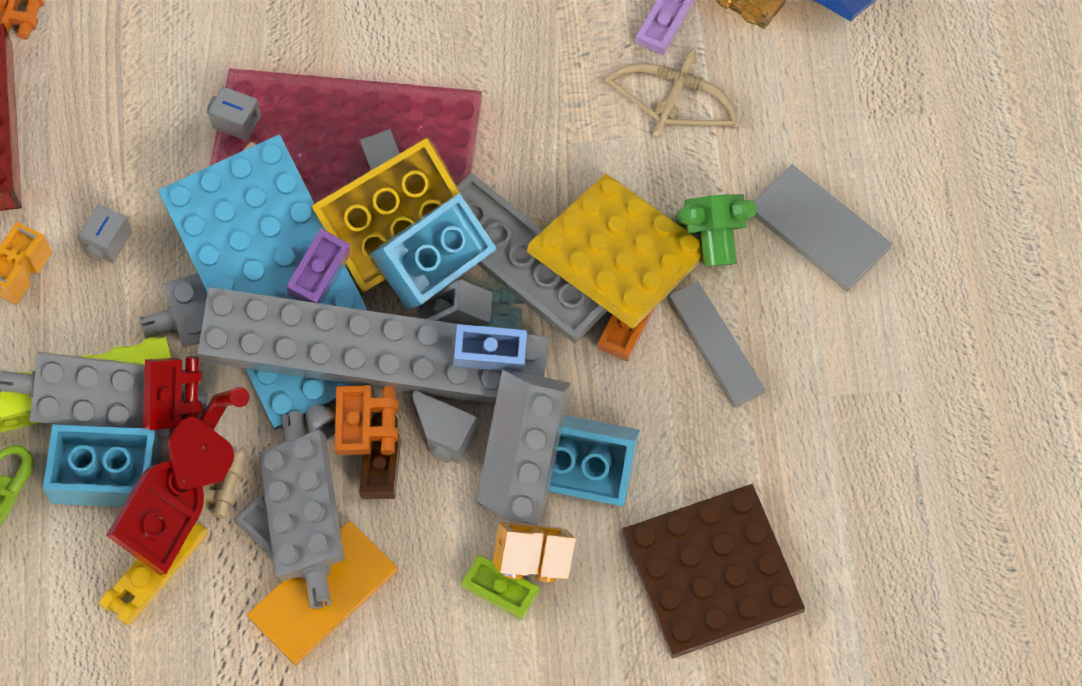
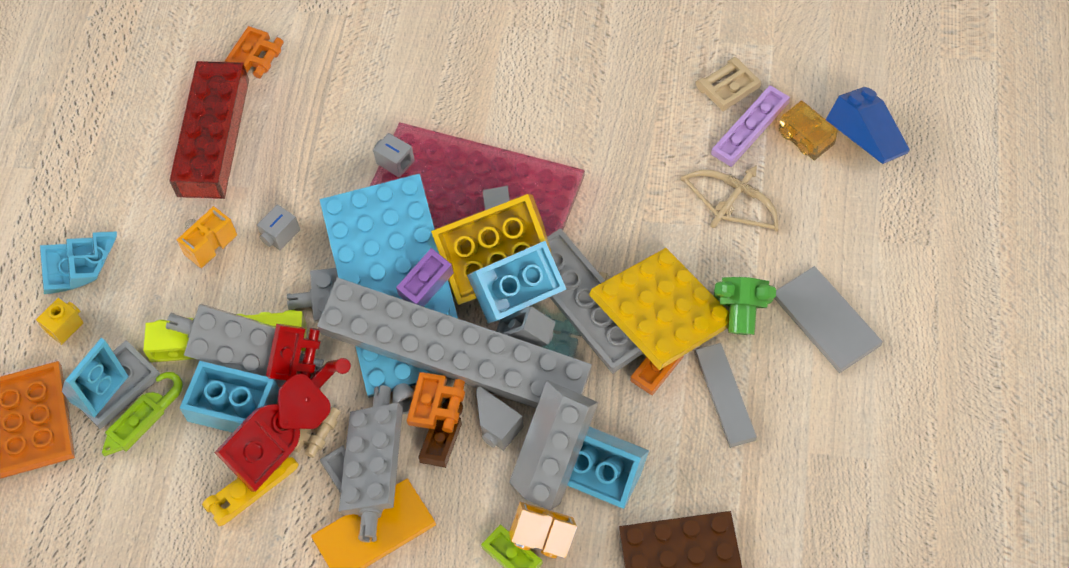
camera: 15 degrees right, 5 degrees down
(489, 348) = (539, 362): light blue brick -> none

